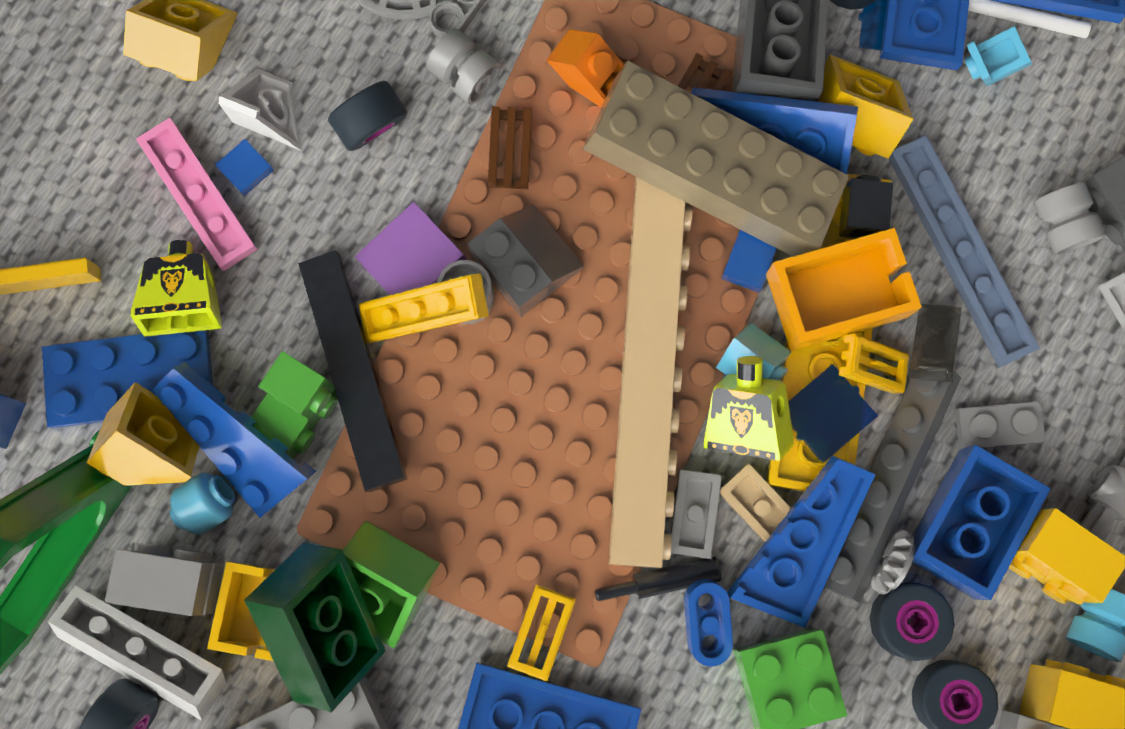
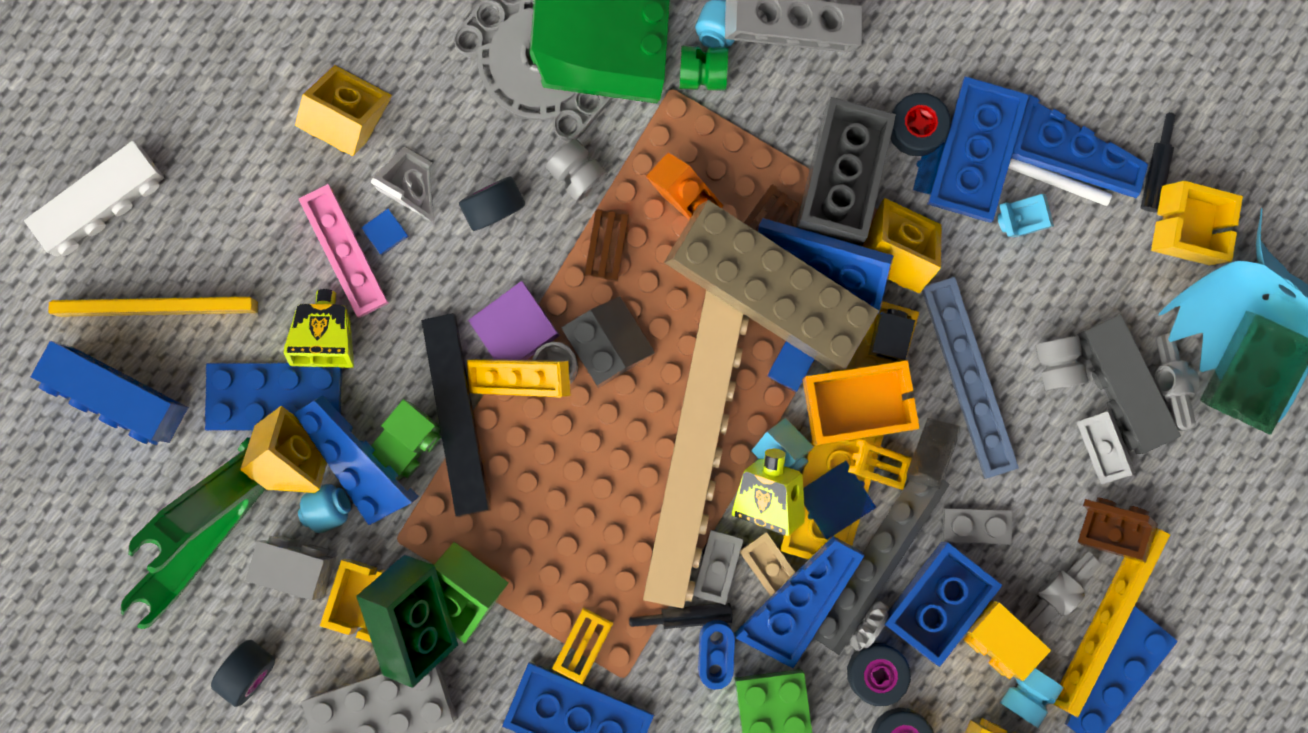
camera: 10 degrees right, 5 degrees up
(138, 652) = (263, 621): white brick -> none

